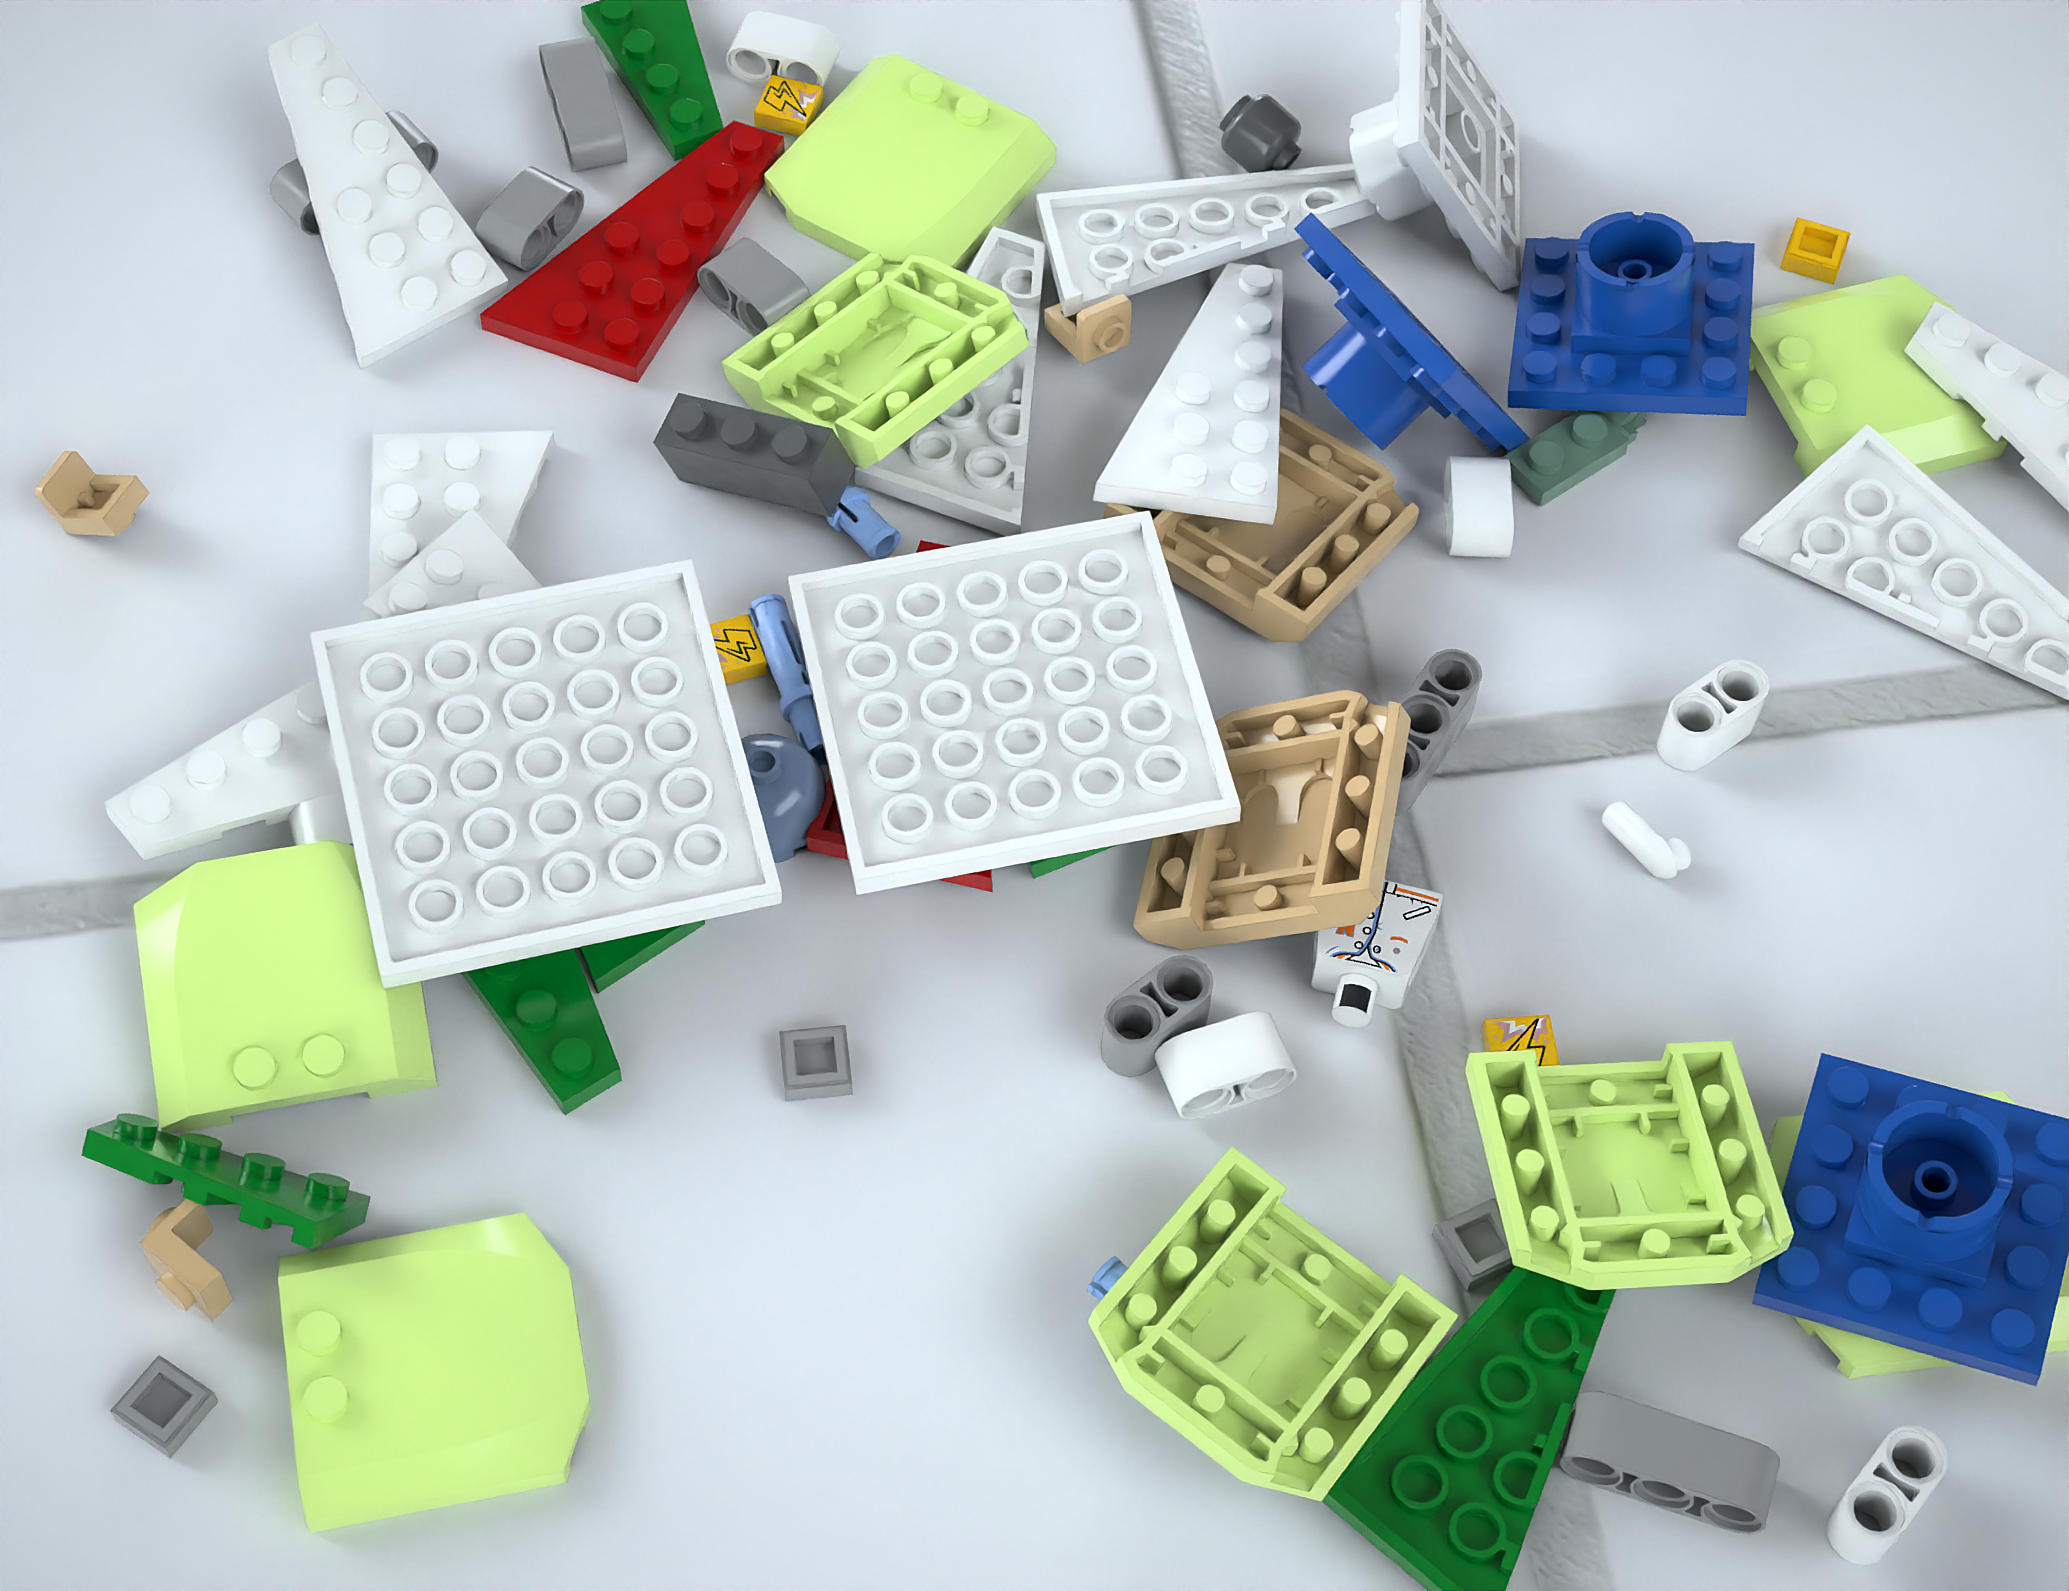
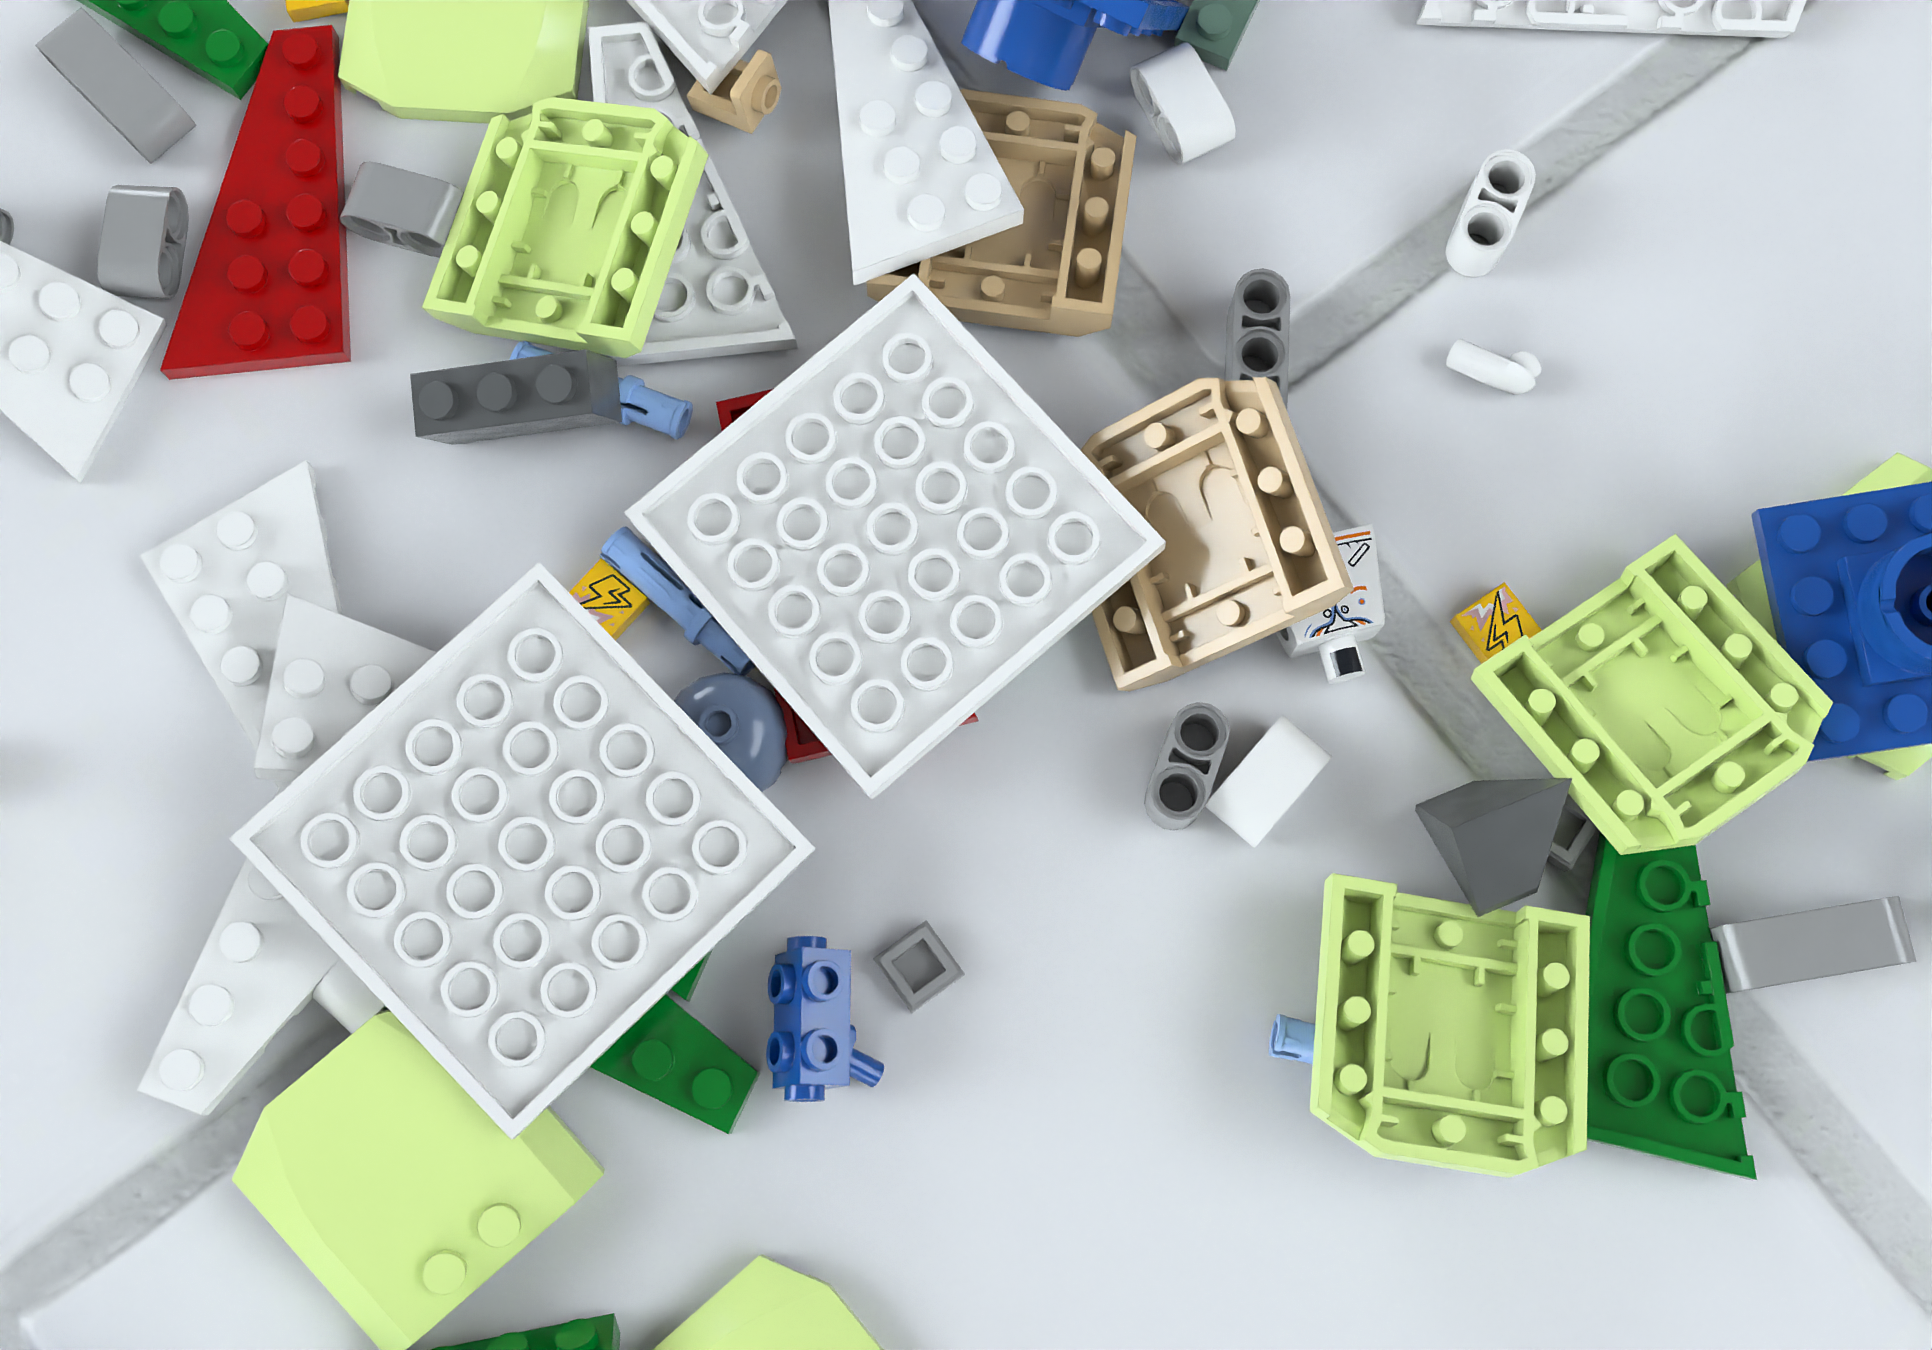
camera: 25 degrees left, 20 degrees up
(685, 1058) = (812, 1023): none -> blue brick
(1408, 1210) = (1496, 836): none -> dark grey slope

